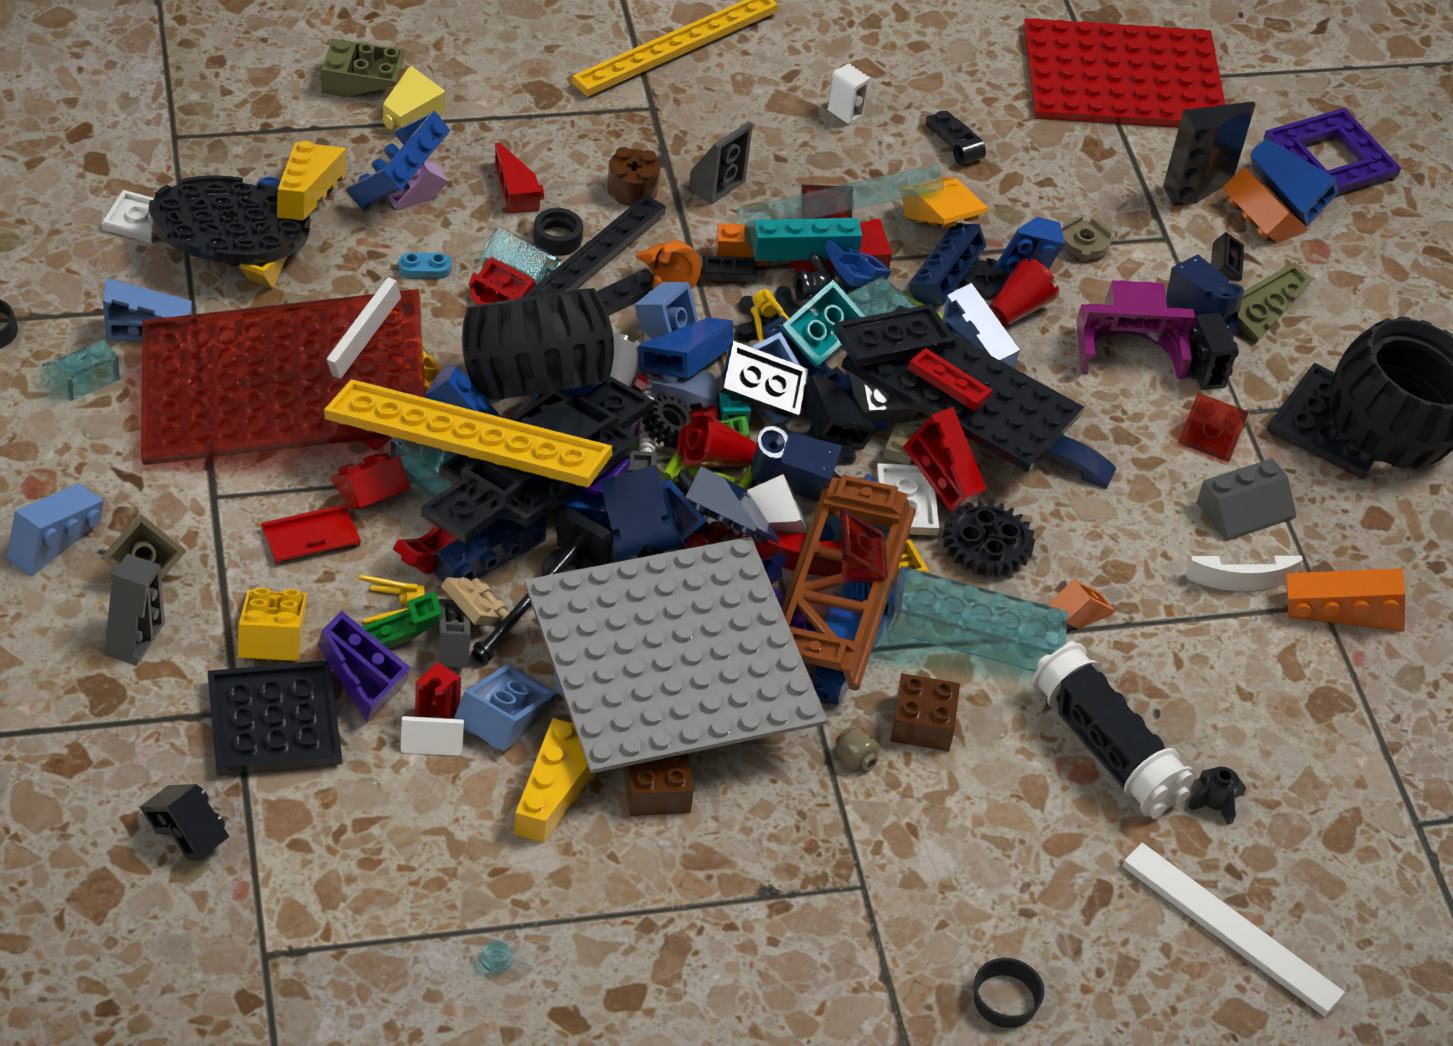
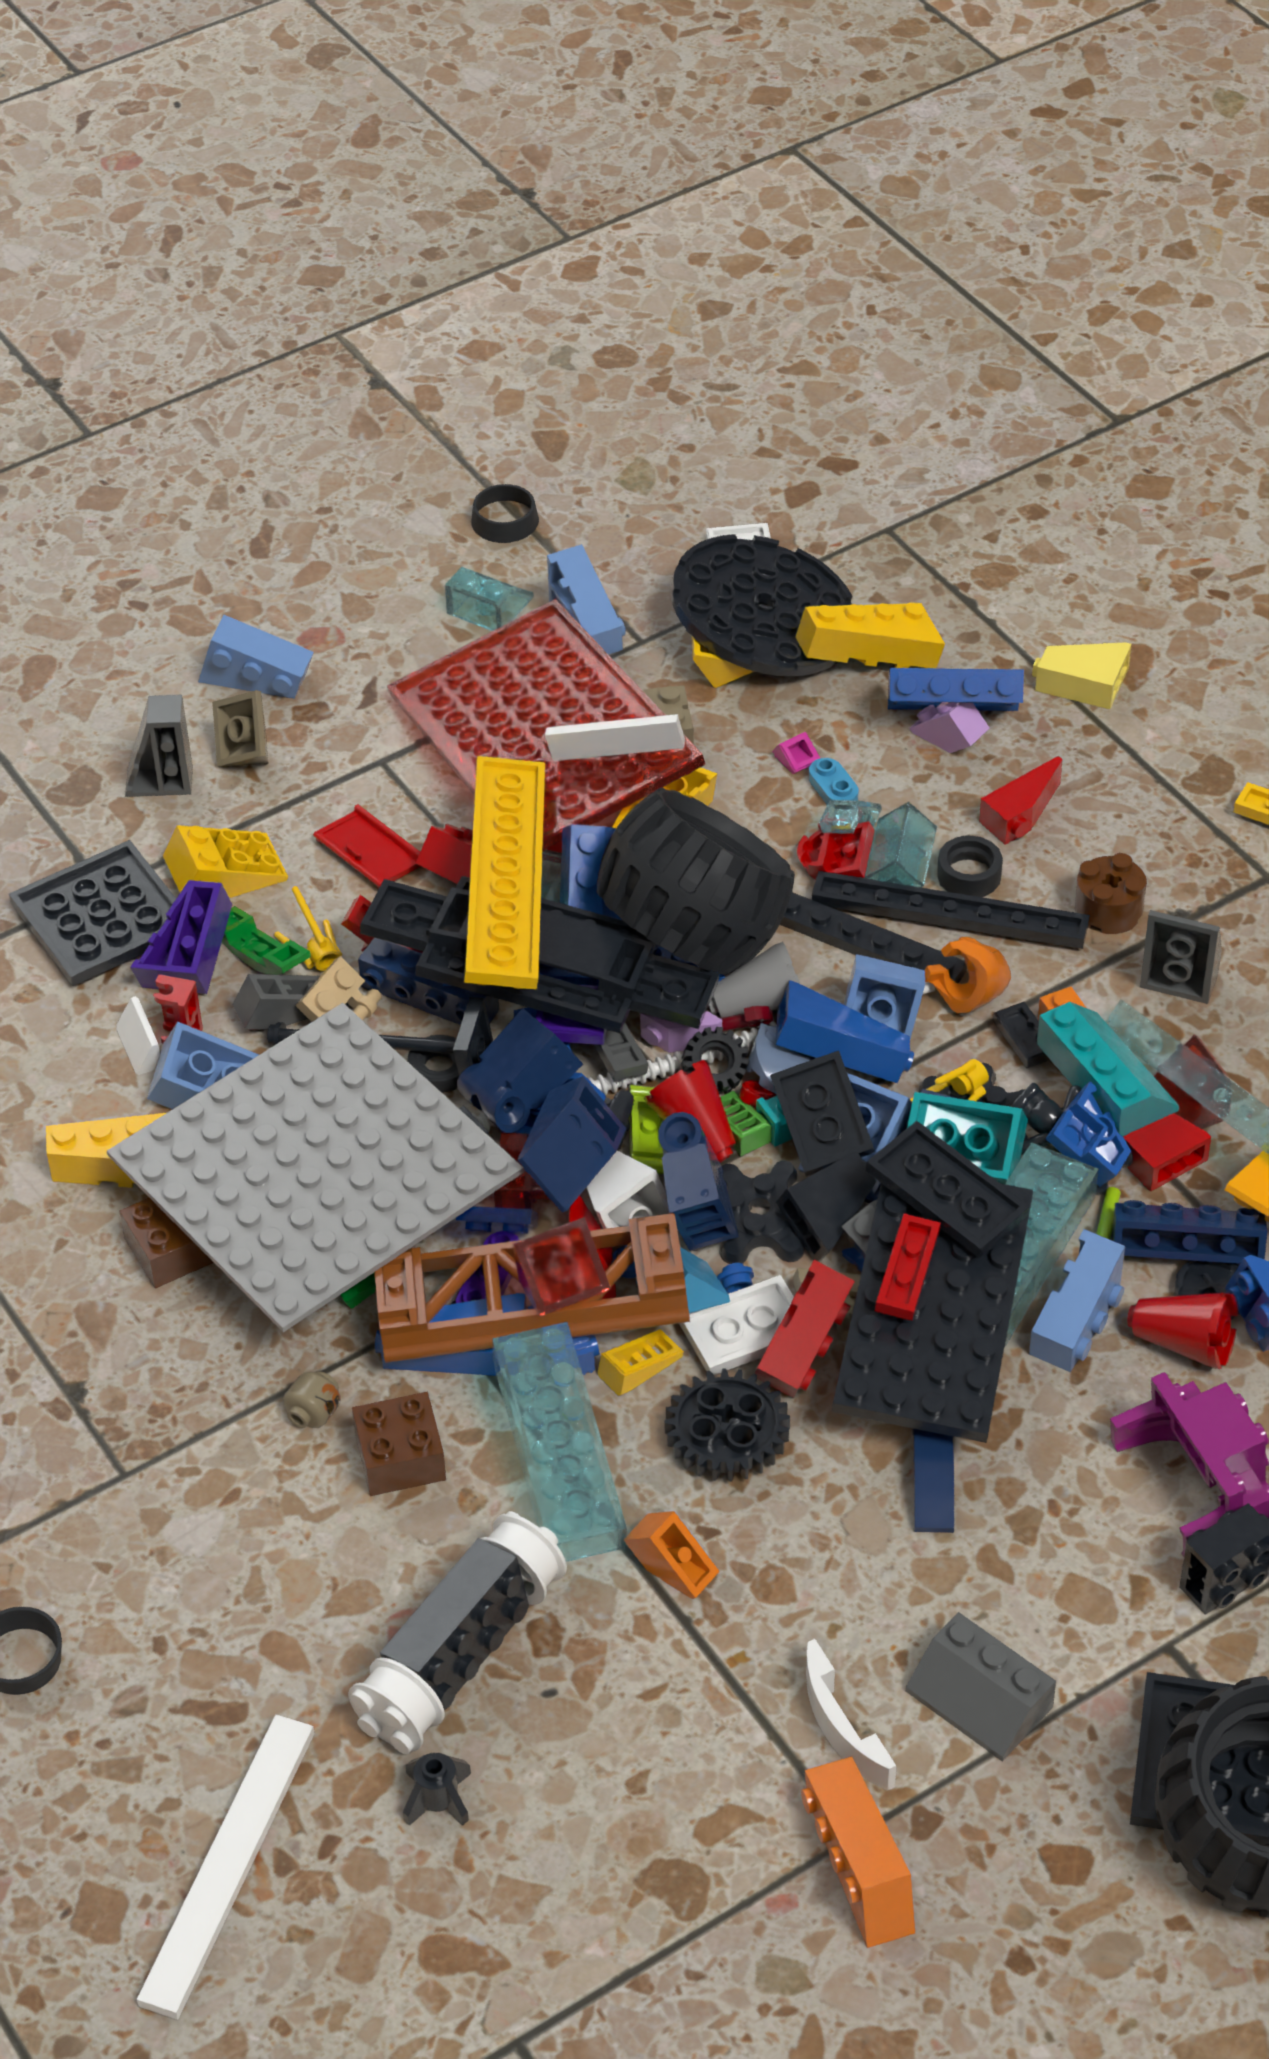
camera: 75 degrees right, 0 degrees up
(359, 68) = (1097, 605): olive slope -> none
(377, 270) = (796, 753): none -> dark pink slope
(480, 262) = (844, 815): none -> clear light blue slope
(1214, 427) = (1099, 1611): clear red slope -> none

